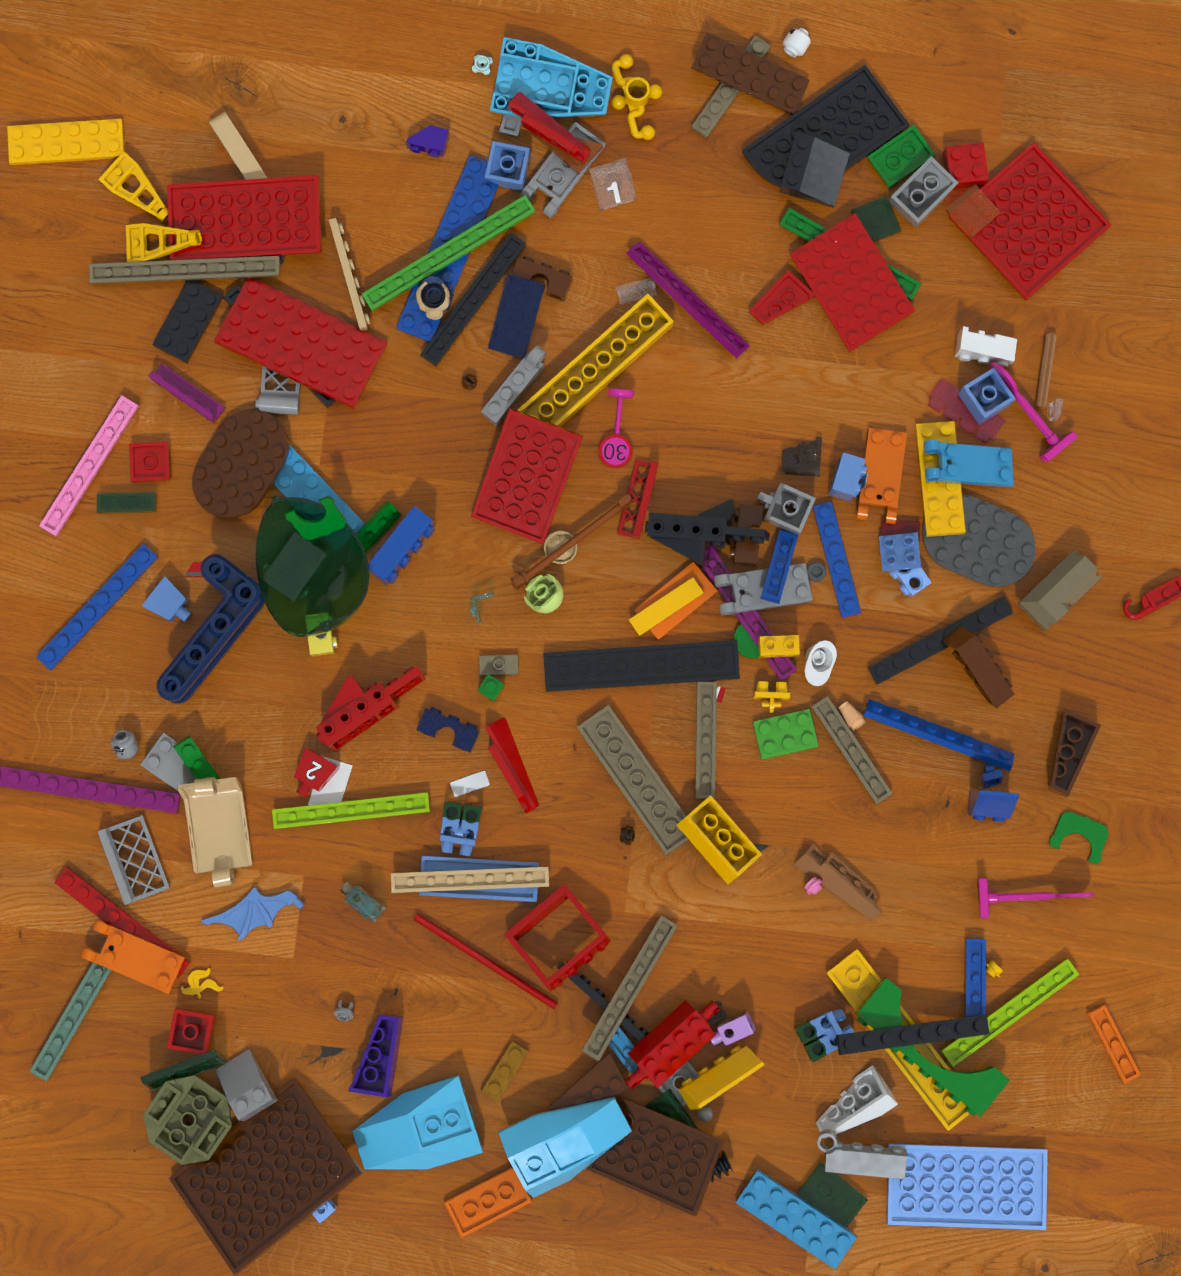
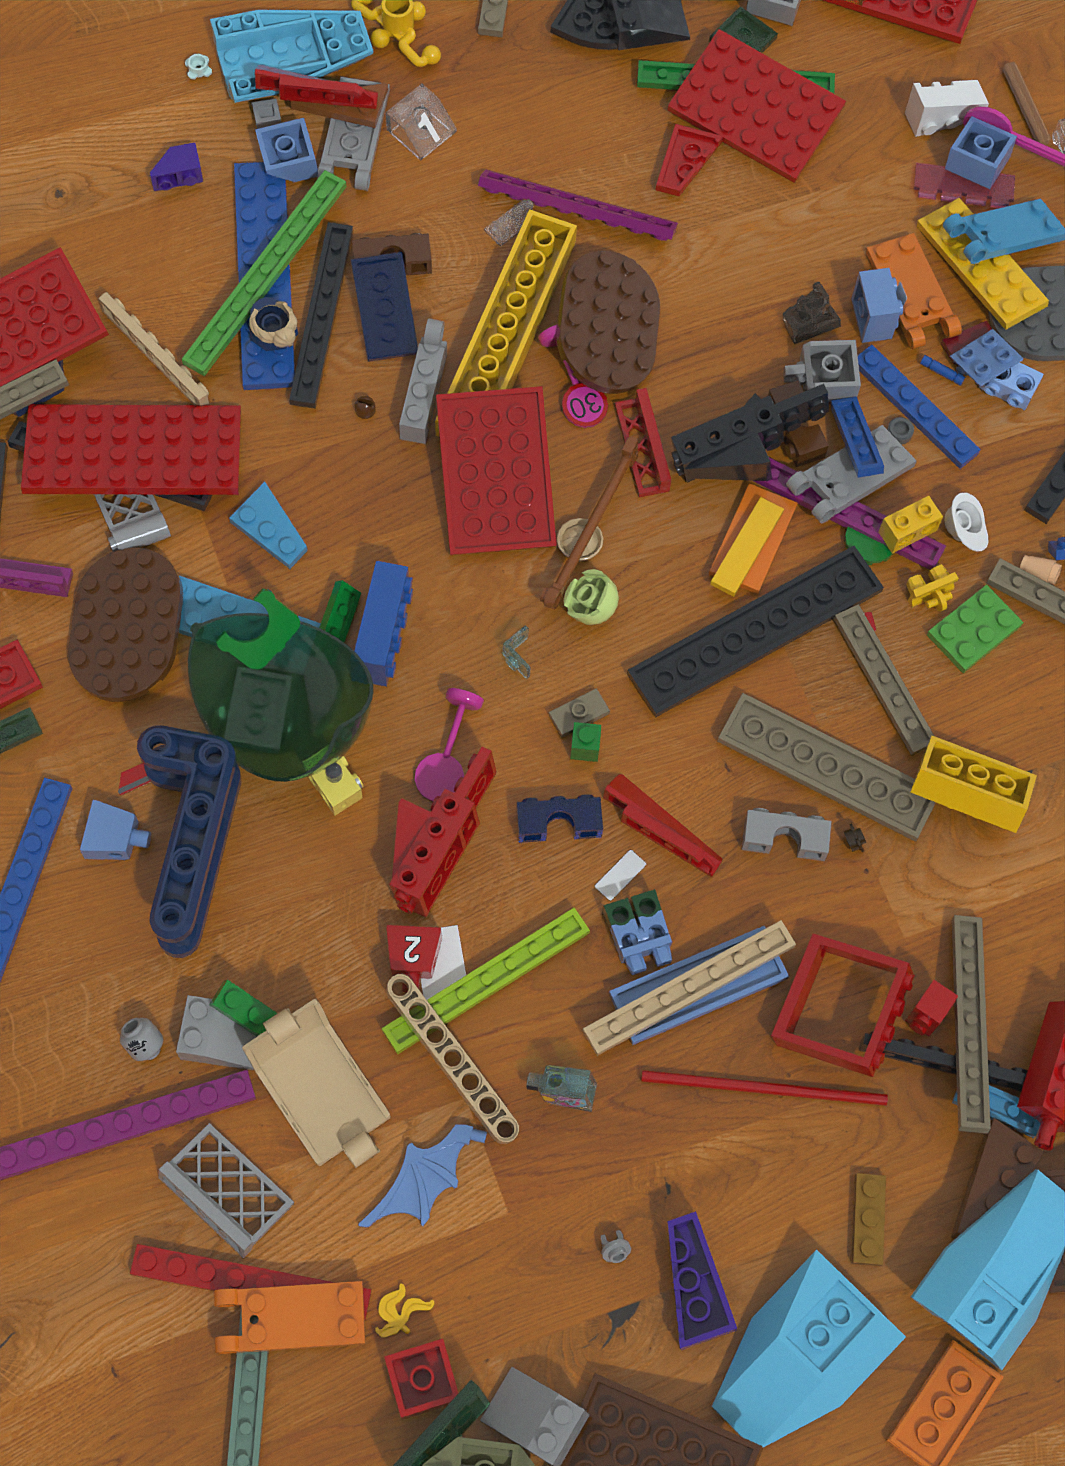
camera: 25 degrees left, 15 degrees down
(301, 861) = (450, 1044): none -> tan beam
(365, 438) = (269, 526): none -> dark azure wing
(390, 662) = (442, 770): none -> dark pink piece
(600, 818) = (810, 833): none -> light grey arch
(610, 967) = (931, 1009): none -> red brick
(660, 401) = (608, 322): none -> reddish brown plate
(869, 541) = (942, 370): none -> blue wheel

